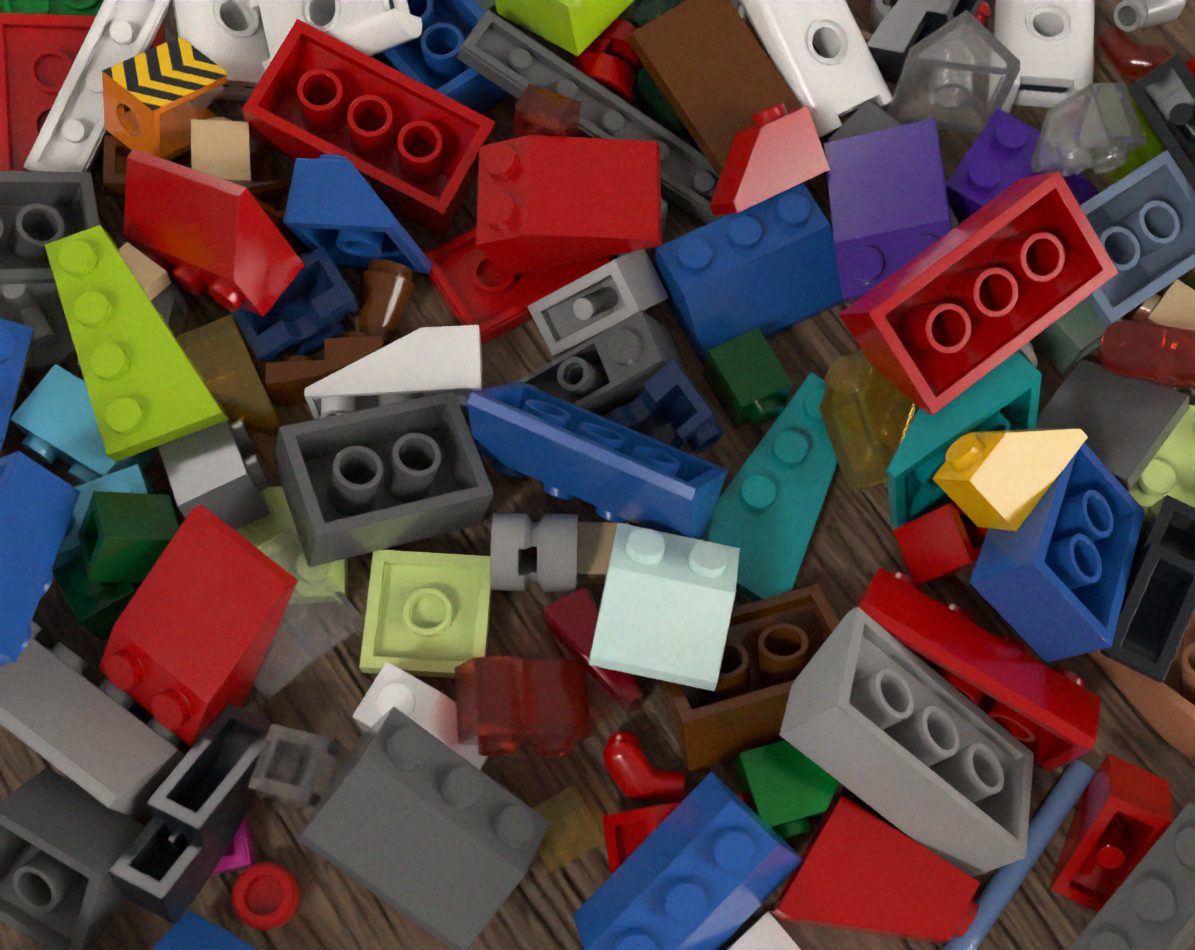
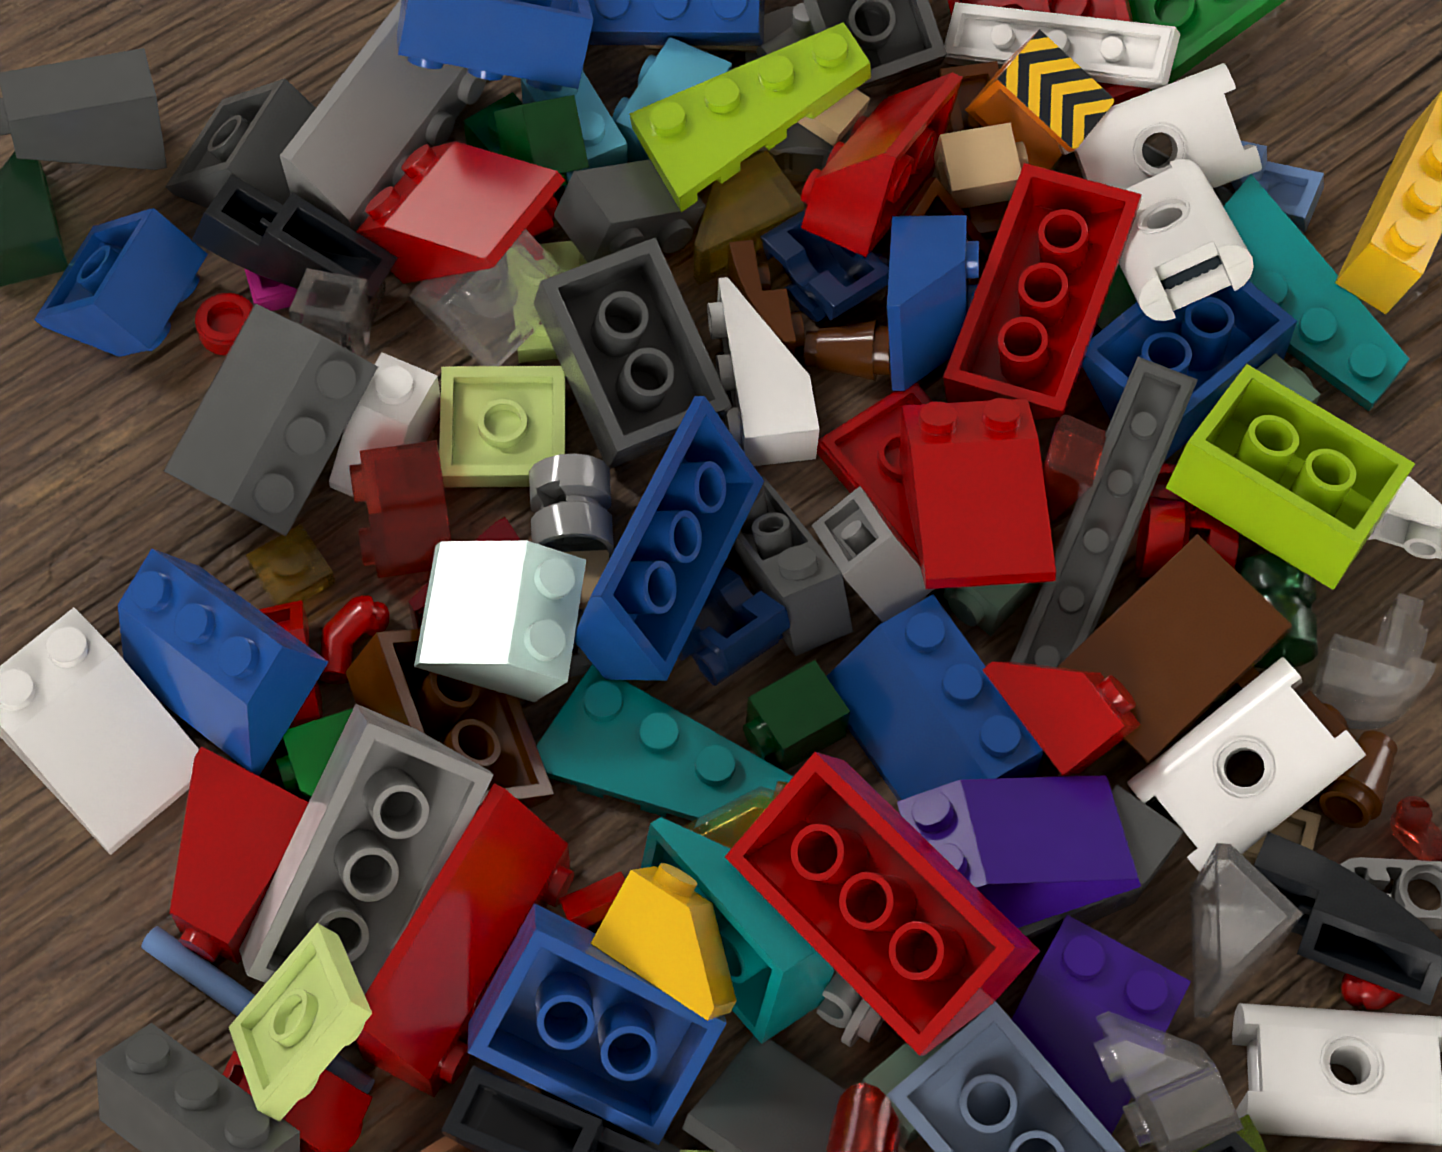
camera: 85 degrees right, 5 degrees down
(1088, 800) = (299, 1022): none -> yellowish green plate

